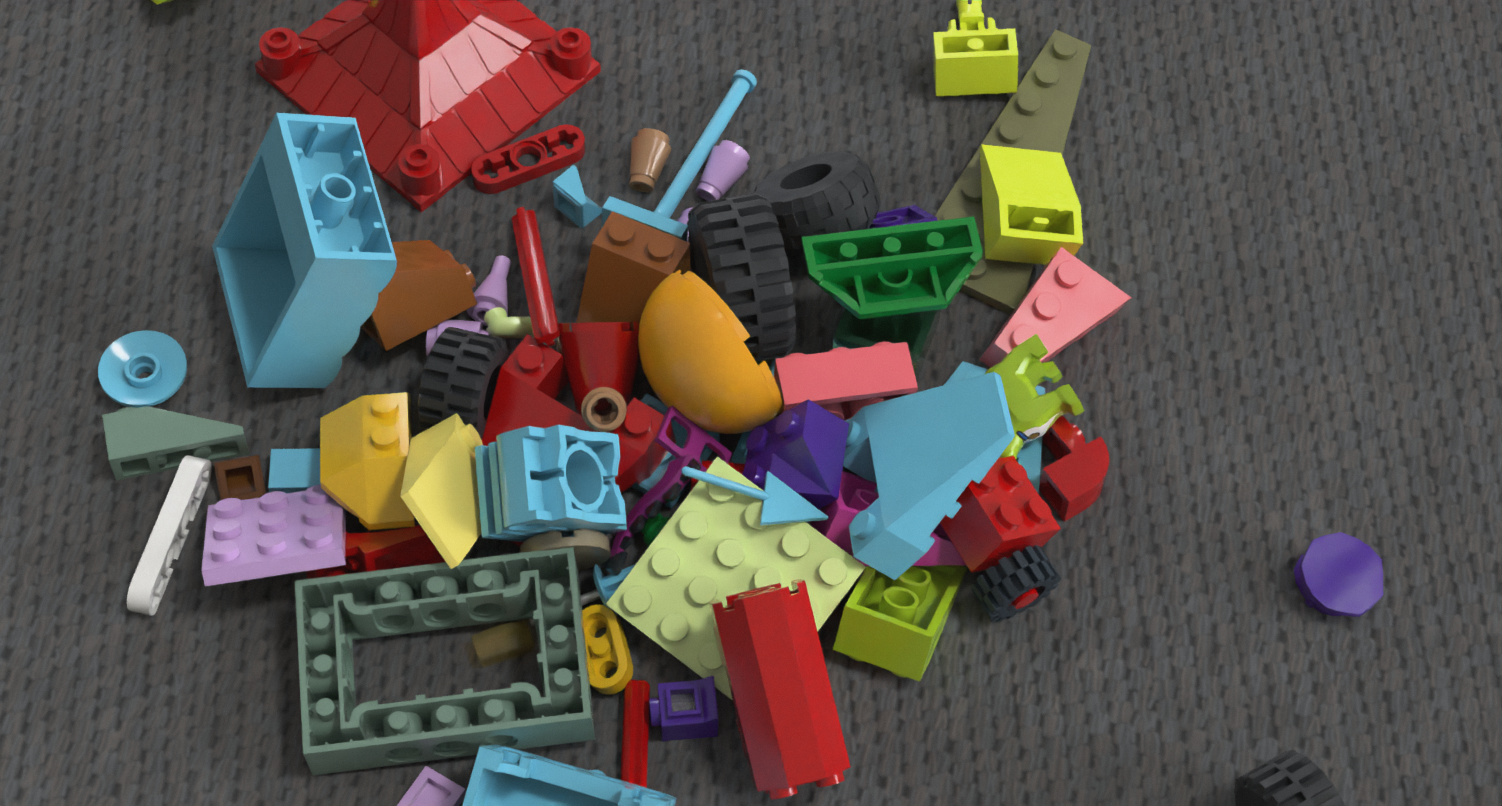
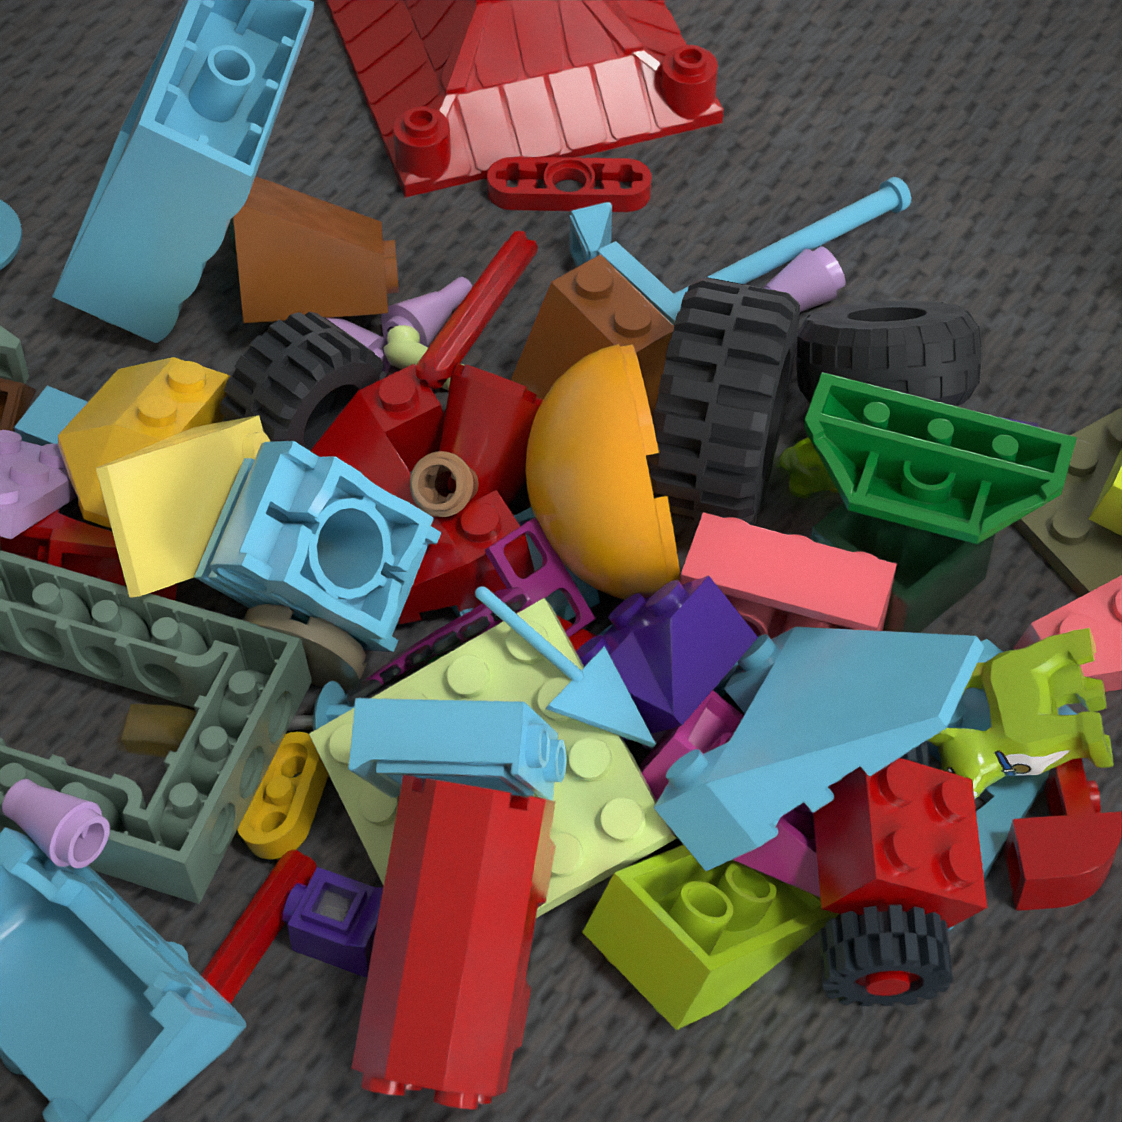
camera: 30 degrees right, 5 degrees down
(502, 729) = (61, 825): none -> lavender cone
(648, 156) = (716, 235): medium nougat cone -> none
(724, 572) = (456, 742): none -> medium azure window
(810, 294) = (805, 481): none -> clear neon green plate

